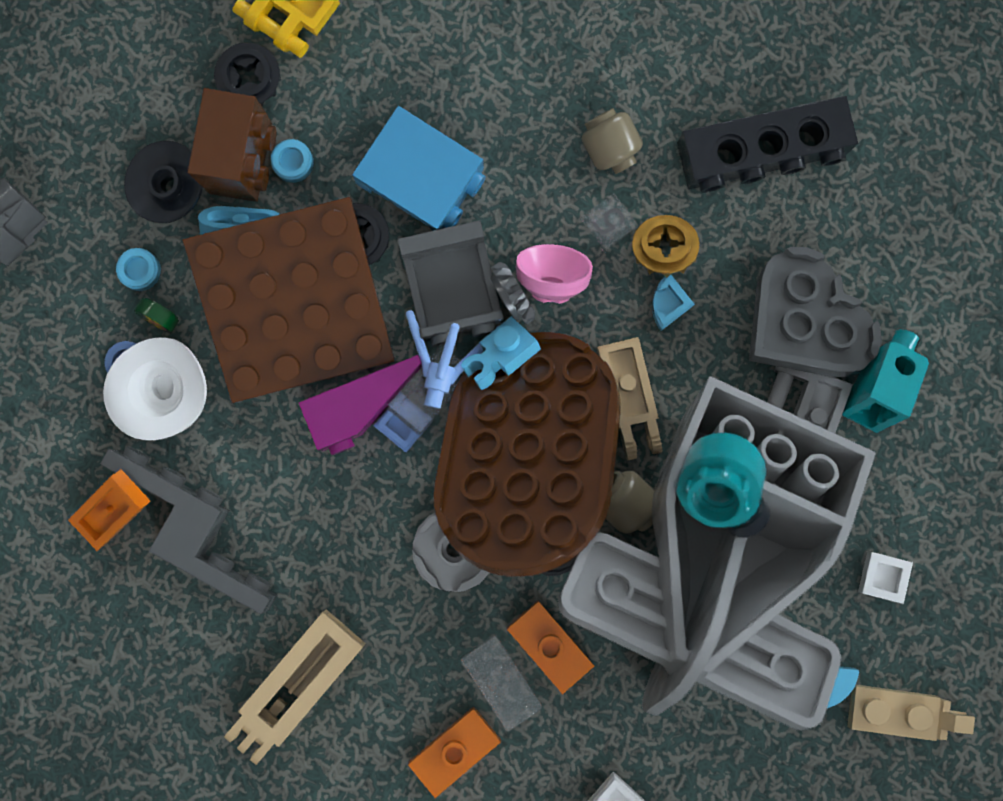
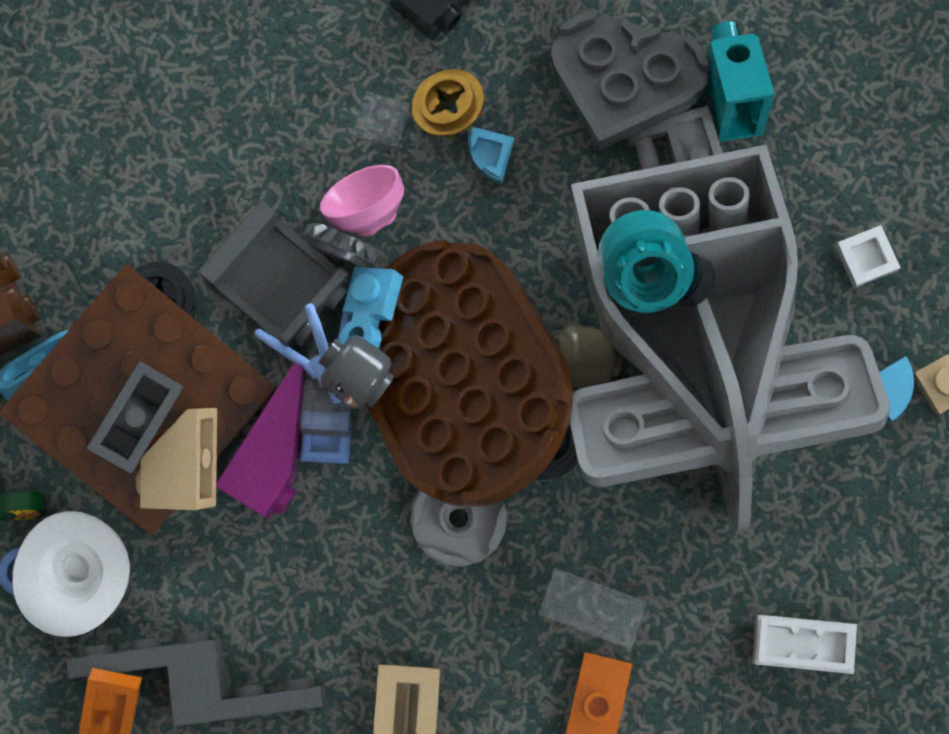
camera: 30 degrees left, 5 degrees down
(274, 315) = (135, 417): none -> dark grey brick
(283, 373) = (181, 464): none -> tan slope
(292, 160) = (46, 274): medium azure tile -> none
(420, 170) = (173, 196): dark azure panel -> none
(454, 397) = (355, 371): none -> dark grey head
(550, 647) = (613, 543): orange plate -> none
(612, 141) = (330, 45): dark tan head -> none
(635, 392) = (521, 255): tan hinge -> none

